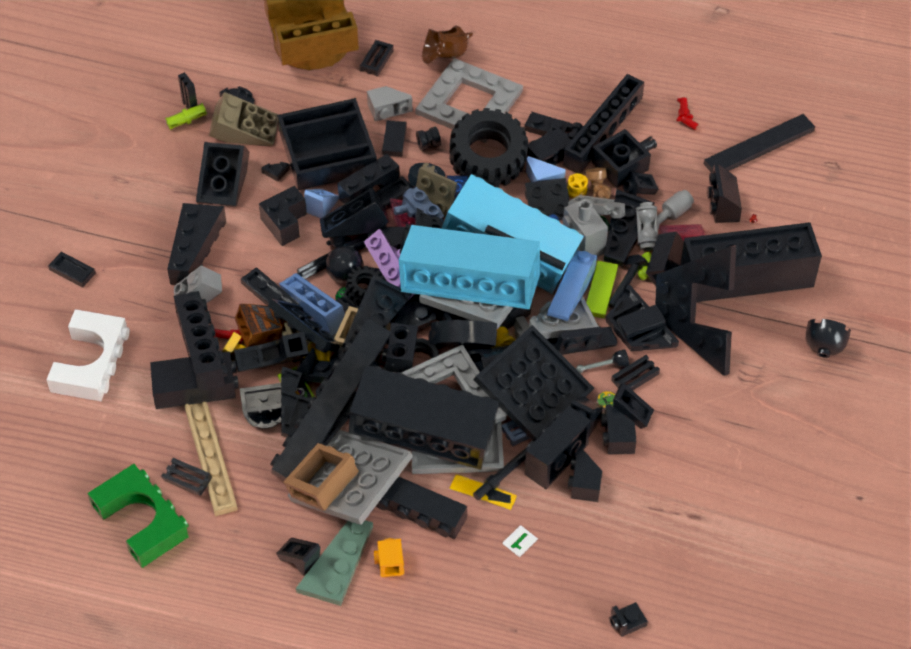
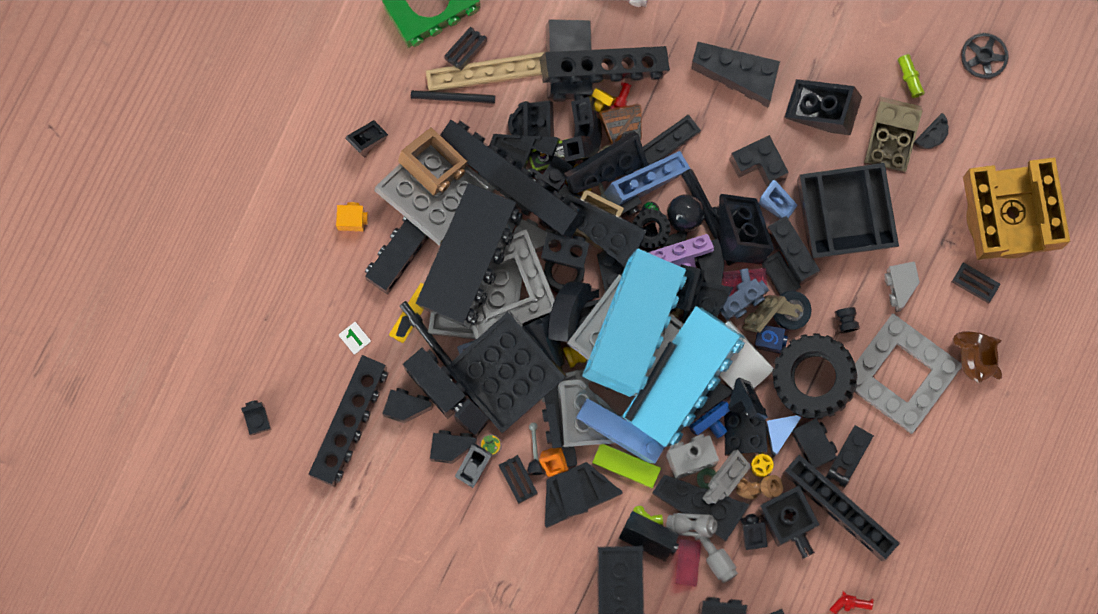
camera: 100 degrees right, 25 degrees up
(160, 69) = (984, 56): none -> black wheel
(187, 91) = (934, 77): black tile -> none
(201, 280) = (680, 72): light grey slope -> none
(241, 485) = (448, 96): none -> black bar
(276, 171) = (827, 160): black tile -> none
(335, 568) = (351, 170): sand green wing -> none
(394, 138) = (856, 286): black tile -> none
(529, 186) = (745, 399): none -> black slope
(612, 342) = (553, 461): none -> orange slope
(620, 536) = (366, 368): none -> black brick
(633, 263) = (650, 506): black piece -> none
(677, 302) = (584, 533): black wing -> none

